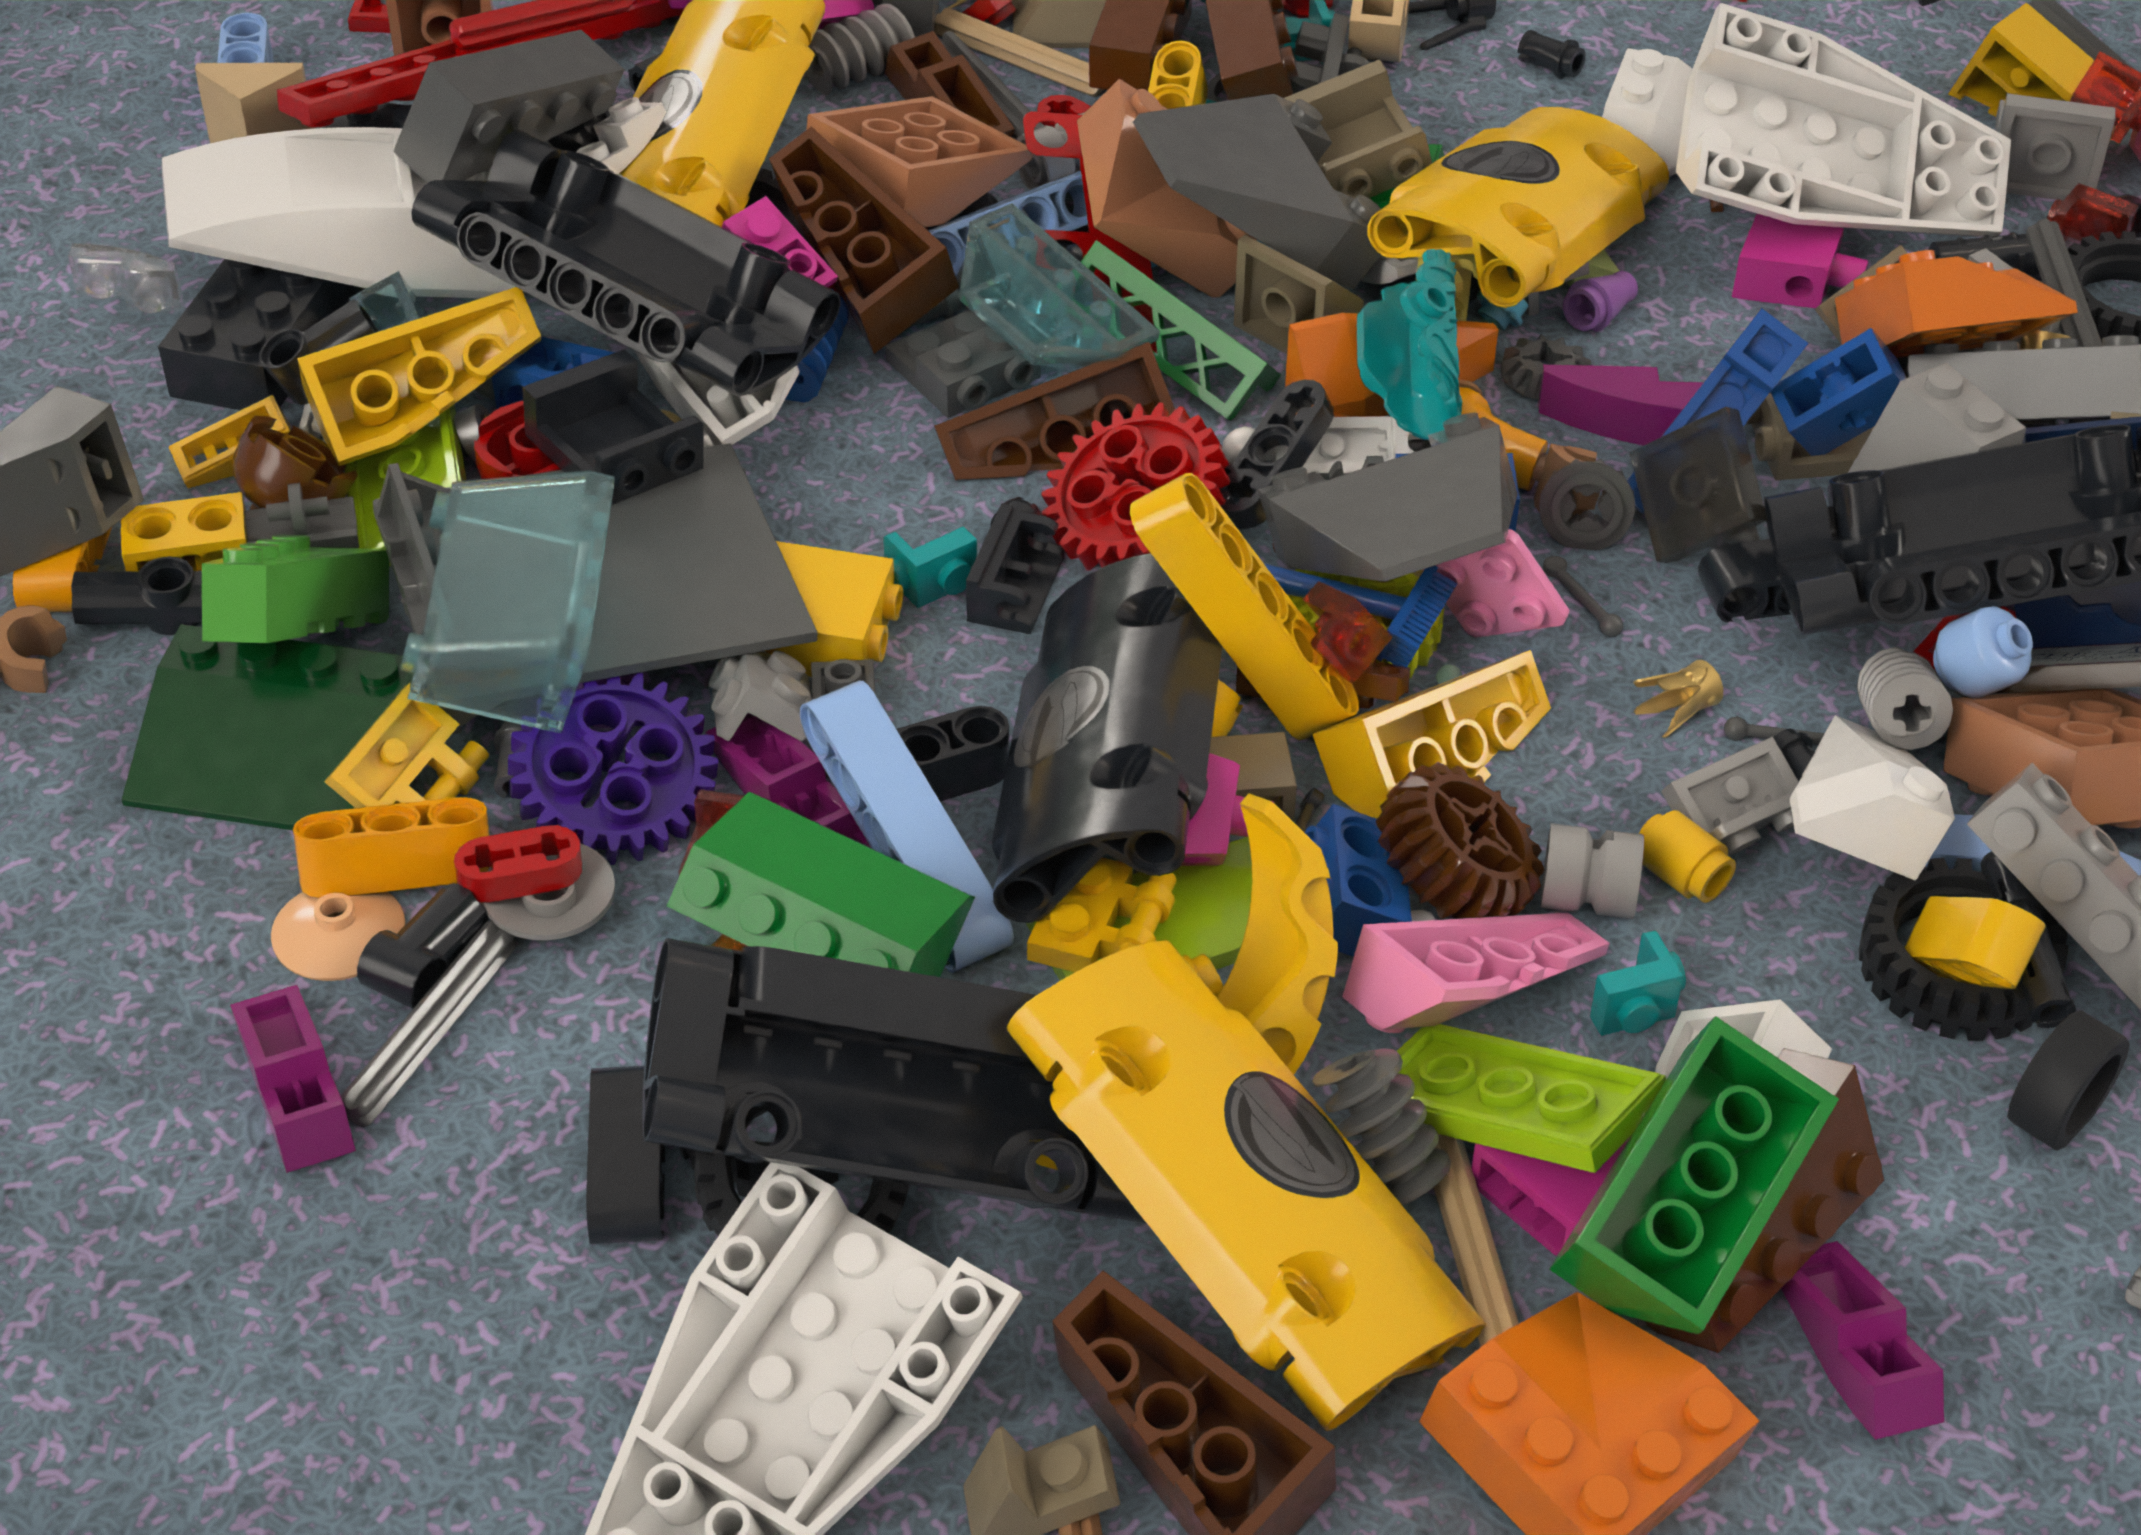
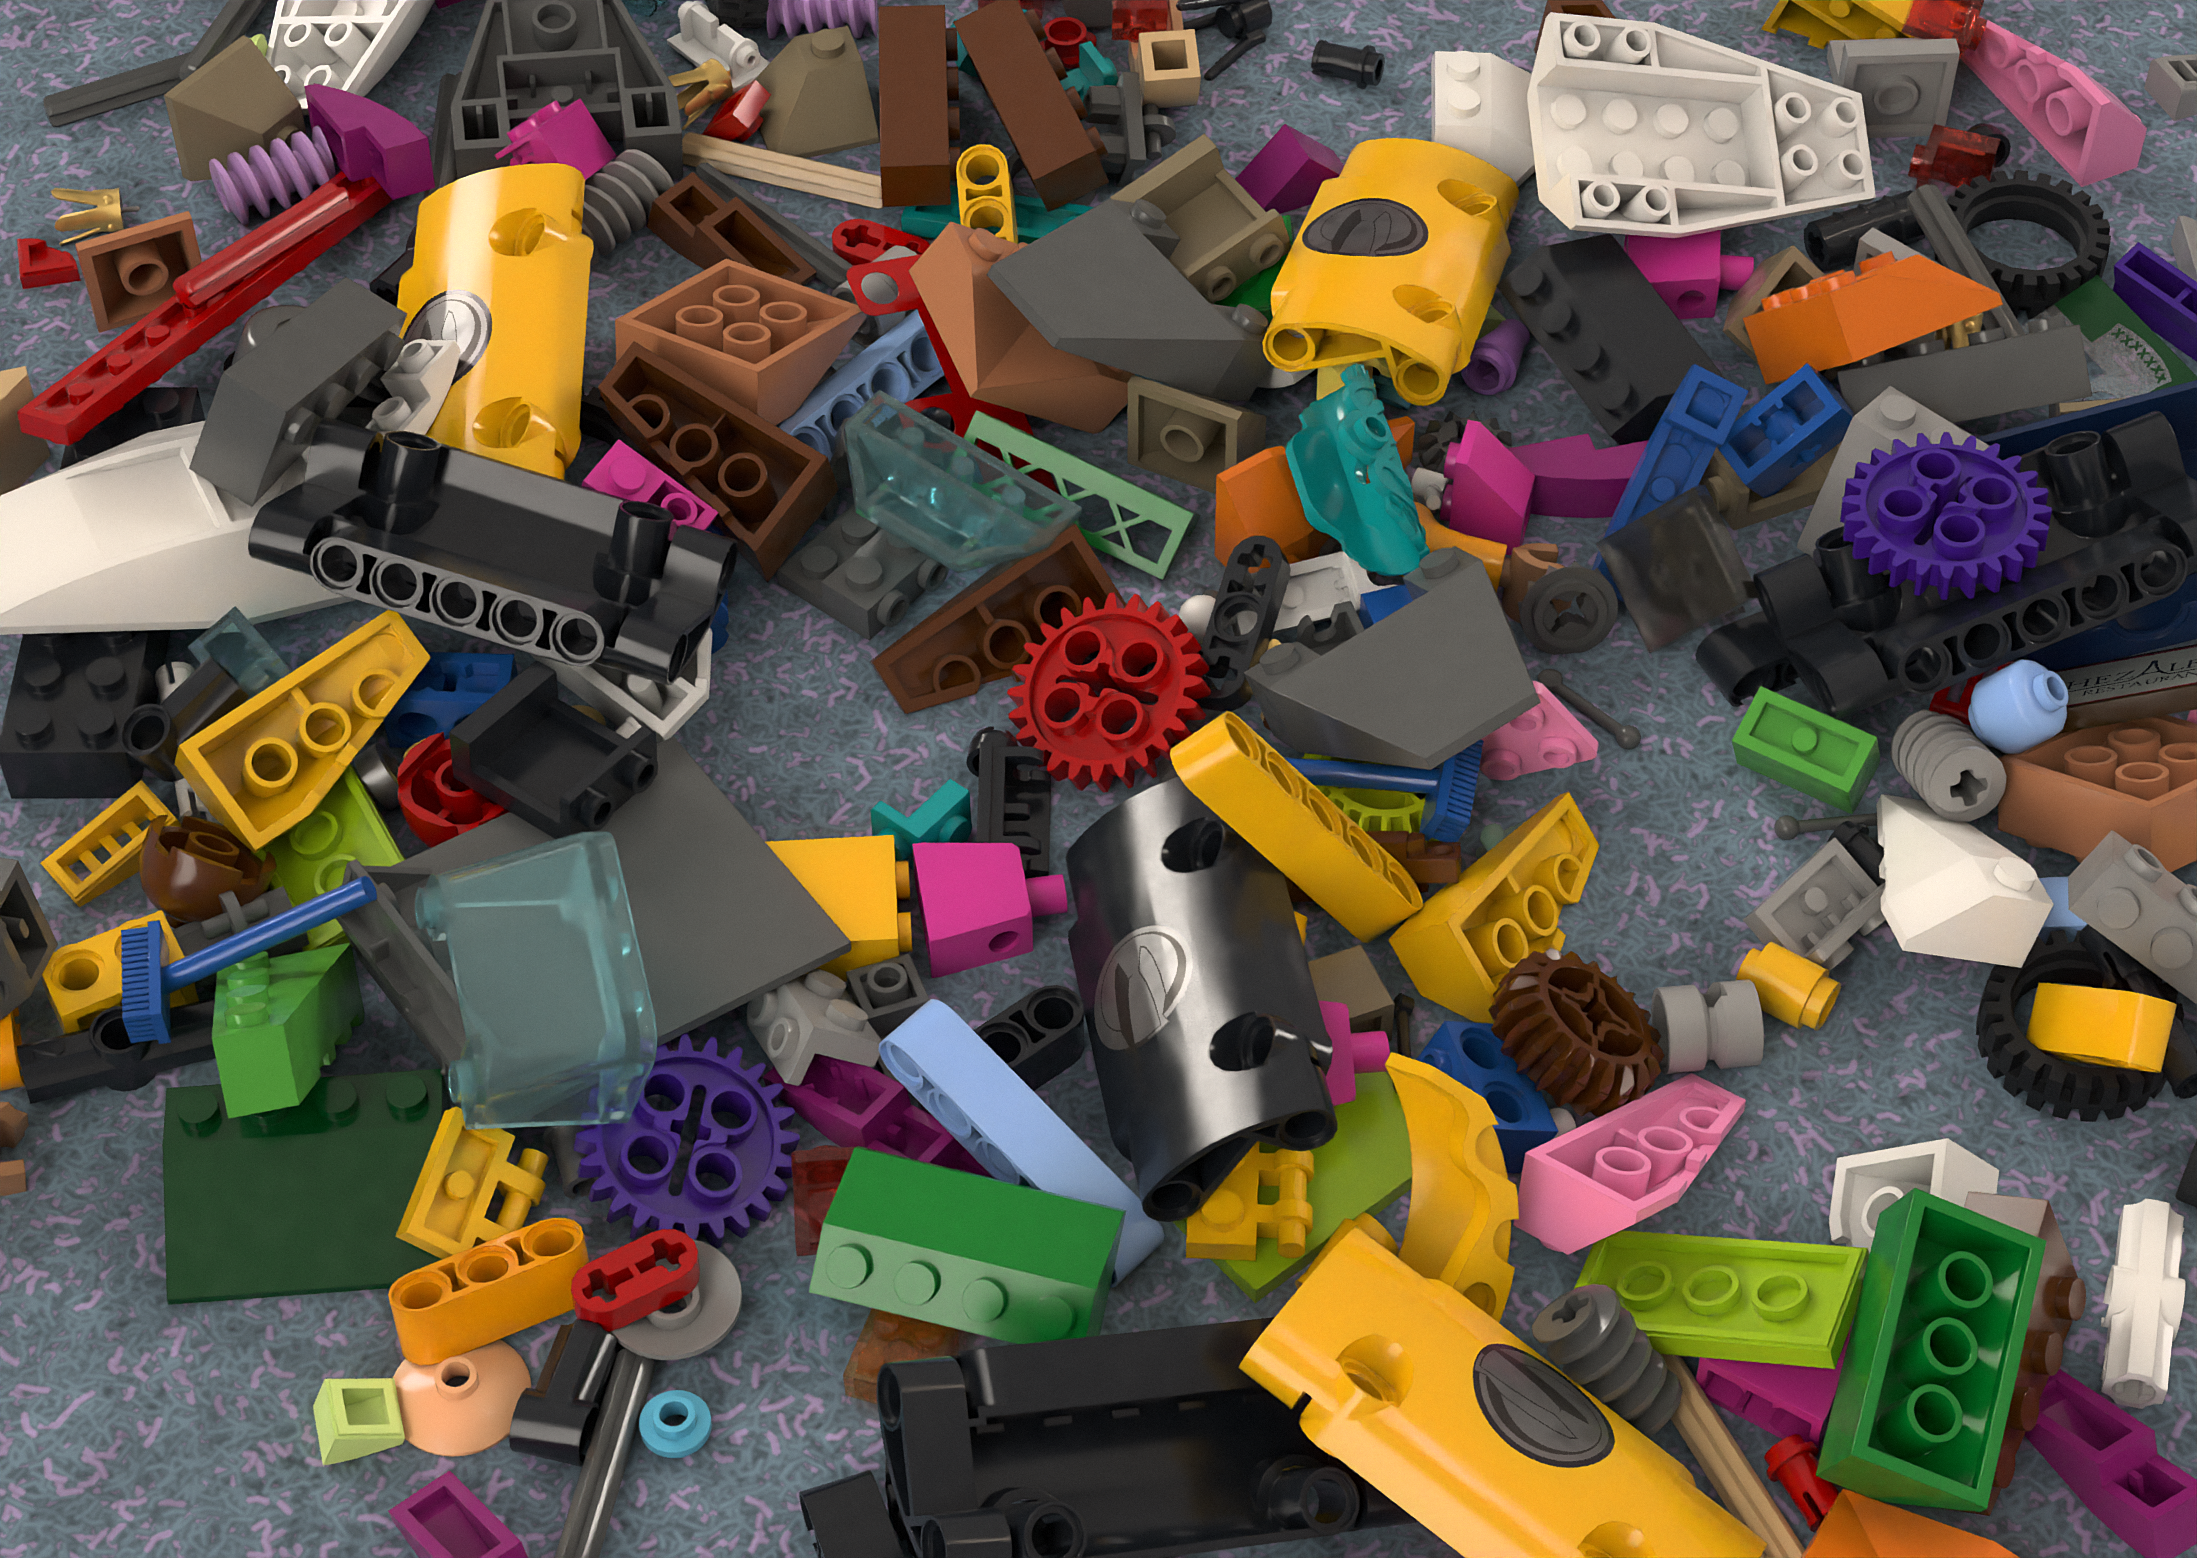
camera: 15 degrees left, 5 degrees up
(209, 527) = (151, 979): none -> blue piece
(239, 926) = (357, 1418): none -> yellowish green slope
(512, 1006) = (675, 1440): none -> medium azure plate
(954, 635) = (979, 903): none -> dark pink torso
(1347, 632) = (1399, 823): clear red bracket -> none
(1462, 117) = (1289, 171): none -> magenta slope
(1497, 389) = (1429, 487): none -> white hand
(1532, 1265) = (1795, 1466): none -> red pin
(1546, 391) = (1489, 489): none -> dark pink slope
(1640, 994) = (1796, 1151): teal bracket -> none
(1692, 687) = (1733, 792): pearl gold piece -> none
(1698, 283) = (1605, 331): none -> black slope
(1773, 661) = (1806, 750): none -> bright green panel
(1941, 1203) = (2143, 1304): none -> white piece
(1958, 470) = (1984, 536): none -> dark purple gear

